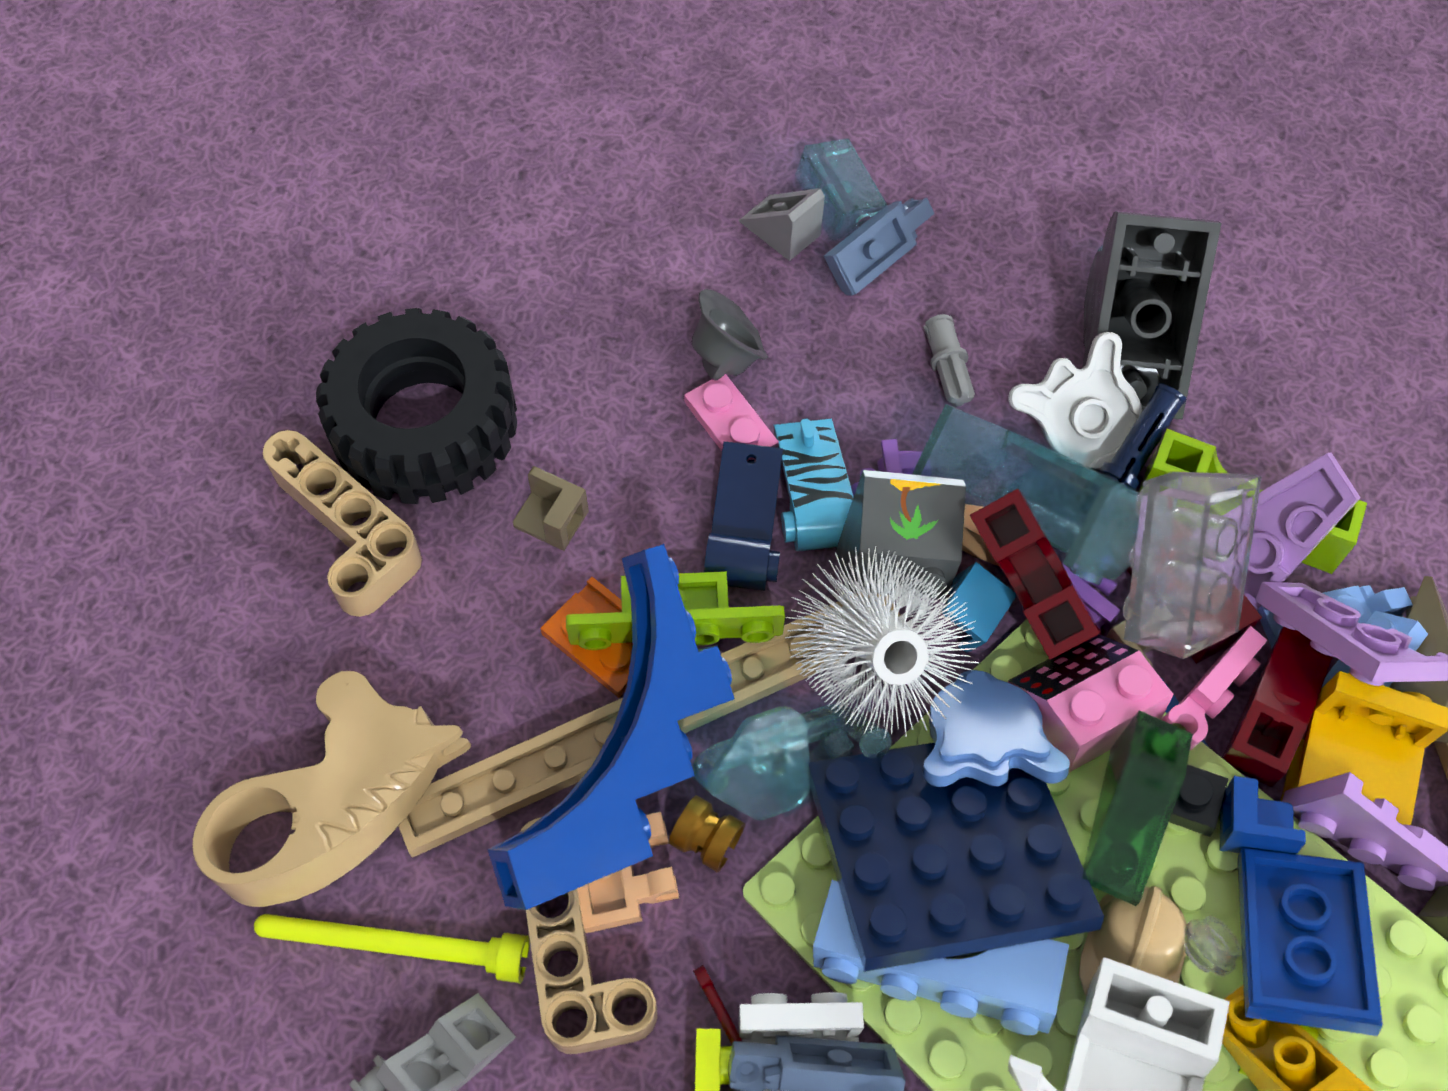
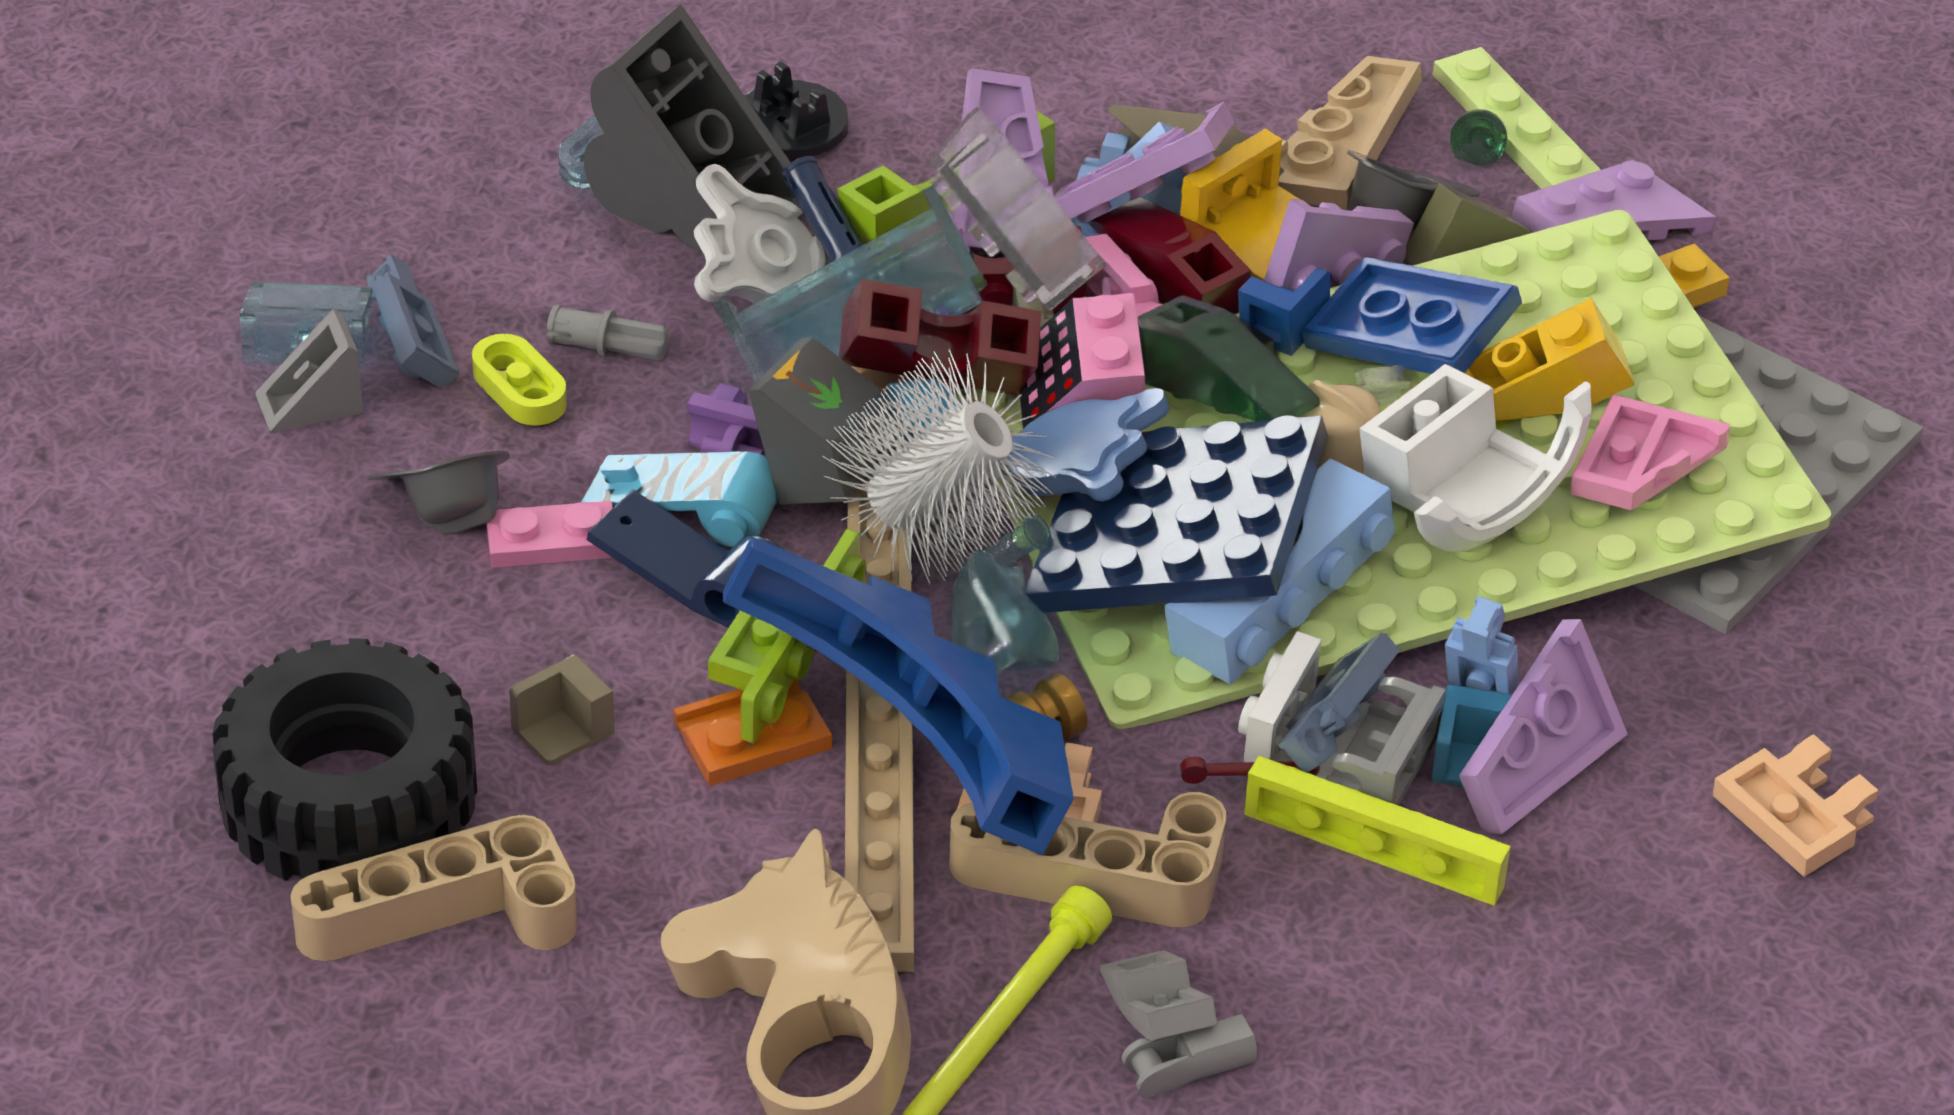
camera: 65 degrees left, 20 degrees down
(864, 332) = (529, 388): none -> neon yellow plate
(1261, 366) = (798, 113): none -> black plate

